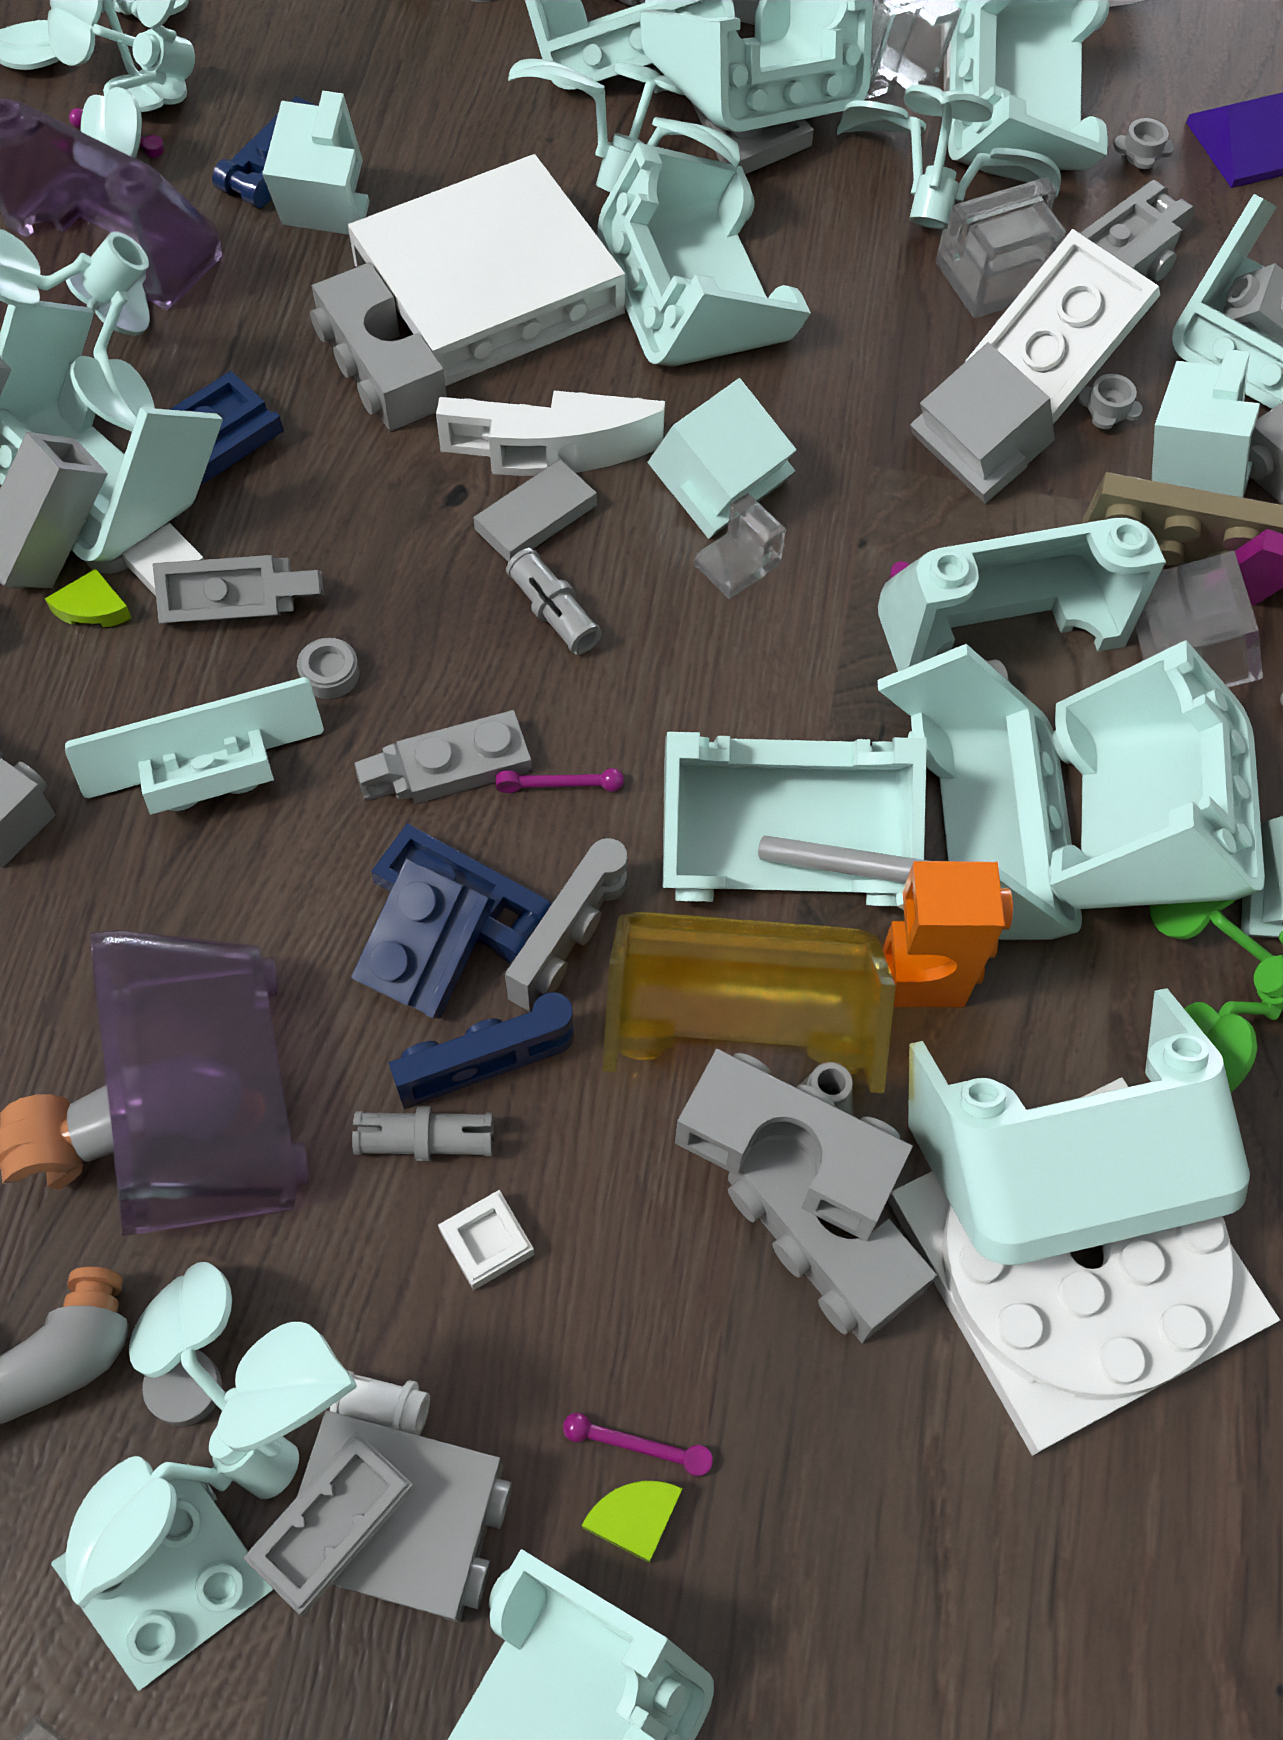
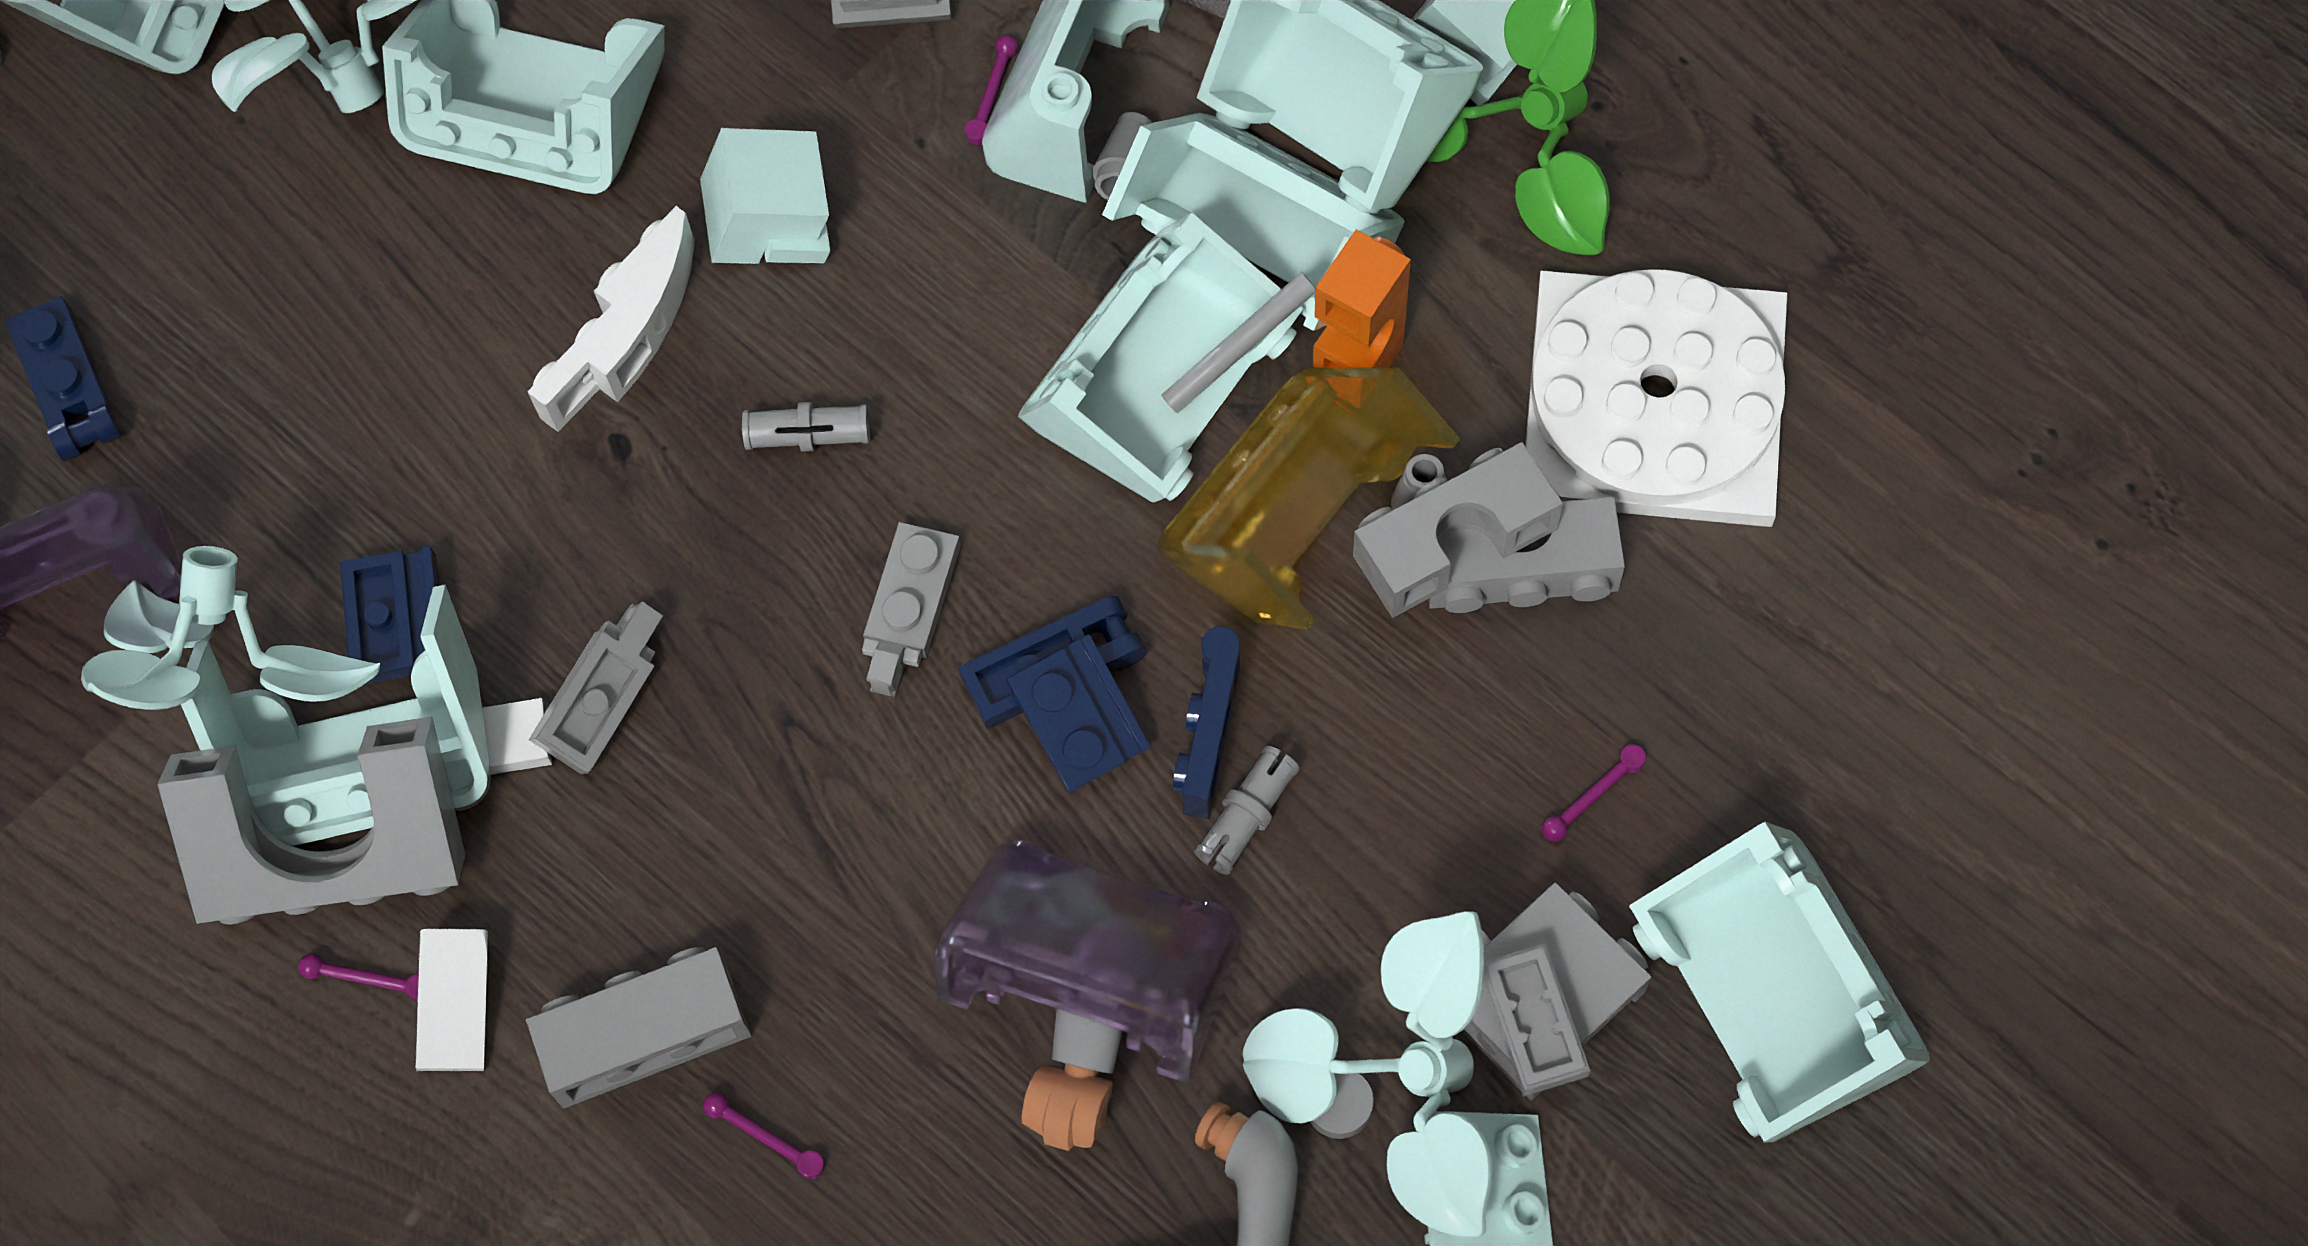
camera: 50 degrees left, 5 degrees up
(89, 601) = (516, 824): lime tile -> none
(197, 749) = (762, 805): light aqua bracket -> none
(315, 166) = (150, 353): light aqua plate -> none
(330, 667) = (738, 654): light grey tile -> none
(360, 319) = (455, 425): light grey arch -> none
(486, 1240) = (1365, 813): white tile -> none
(491, 267) = (381, 263): white panel -> none
(511, 781) = (1017, 486): magenta hinge -> none
(535, 510) = (694, 387): light grey tile -> none
(569, 920) = (1139, 593): light grey plate -> none
(634, 1516) = (1647, 824): lime tile -> none
(746, 551) = (864, 241): clear panel -> none
(1086, 1165) = (1614, 338): light aqua windscreen -> none

